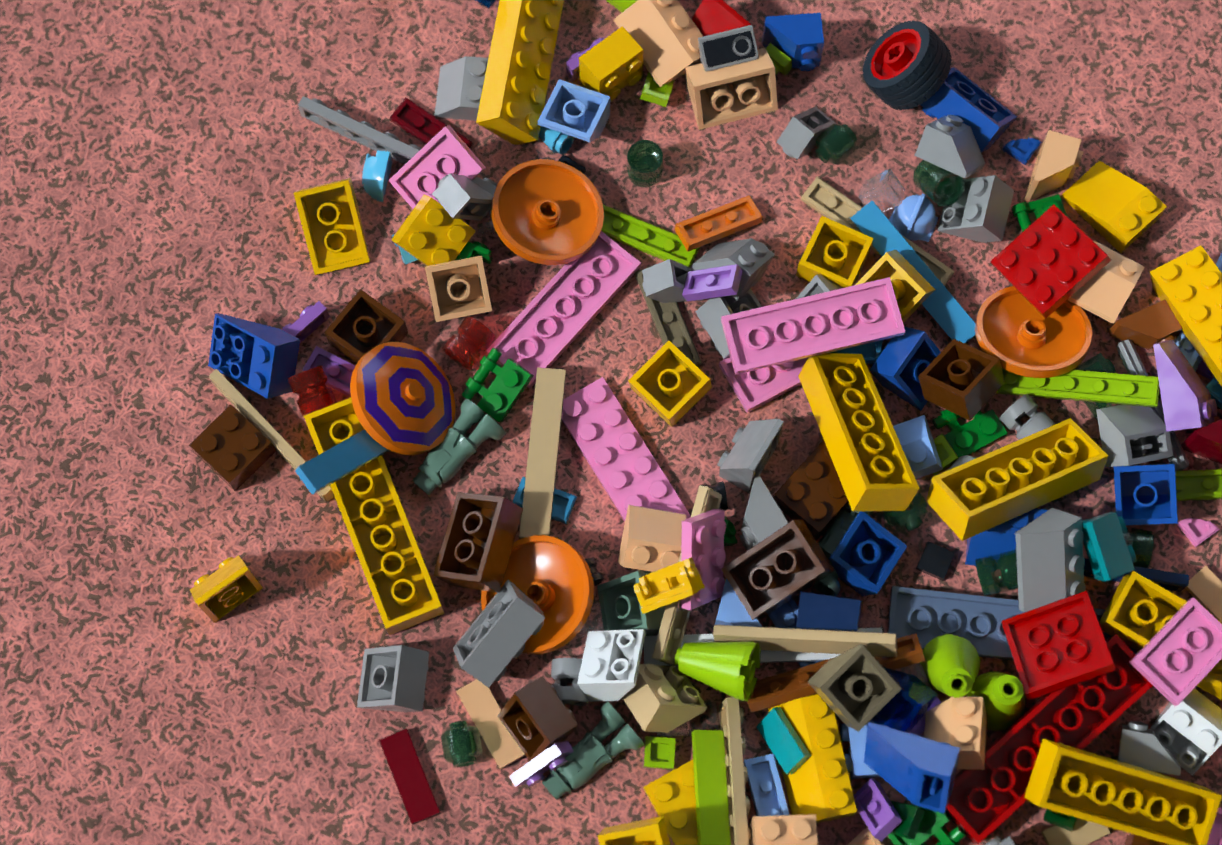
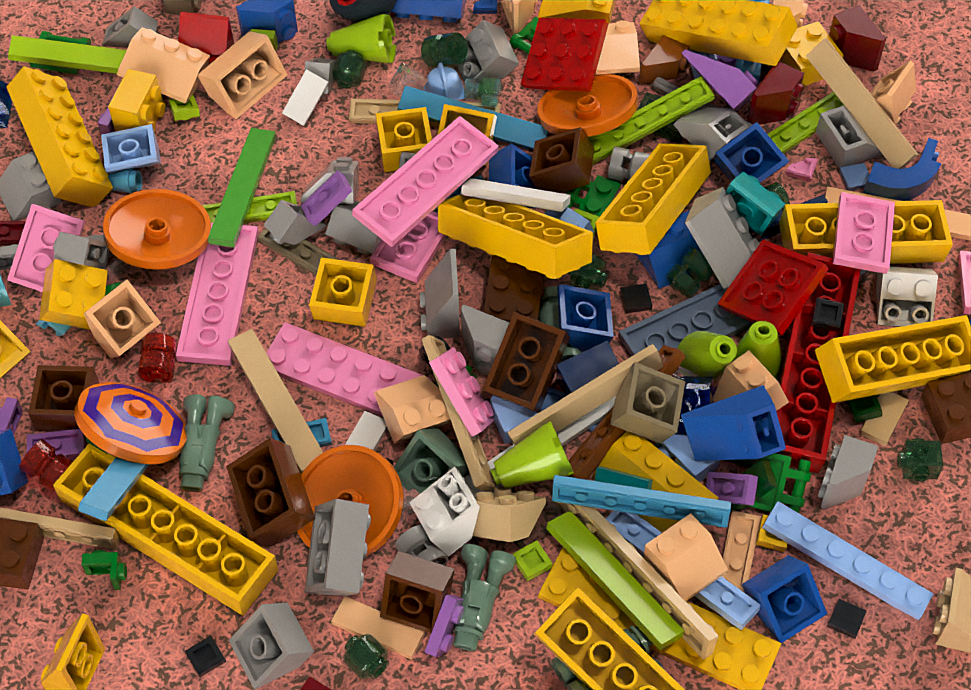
camera: 35 degrees left, 15 degrees down
(305, 509) = (104, 562): none -> green bracket
(336, 650) = (205, 656): none -> black tile
(505, 388) = (211, 373): green plate -> none
(597, 537) = (368, 431): none -> white tile
(644, 163) = (211, 158): clear green wheel -> none
(654, 211) = (242, 188): none -> bright green tile
(668, 585) = (451, 420): yellow hinge -> none
(718, 223) = (298, 167): orange plate -> none
(728, 48) = (221, 42): slope -> none
(773, 151) = (305, 97): none -> white tile
(782, 772) = (640, 501): none -> dark azure tile
(872, 122) = (368, 37): none -> lime cone
(889, 391) = (515, 195): none -> white tile
(951, 146) = (435, 19): light grey slope -> none
(951, 248) = (487, 89): none -> clear light blue piece
(1086, 708) = (827, 314): none -> black tile
(1145, 749) = (885, 319): light grey slope -> none

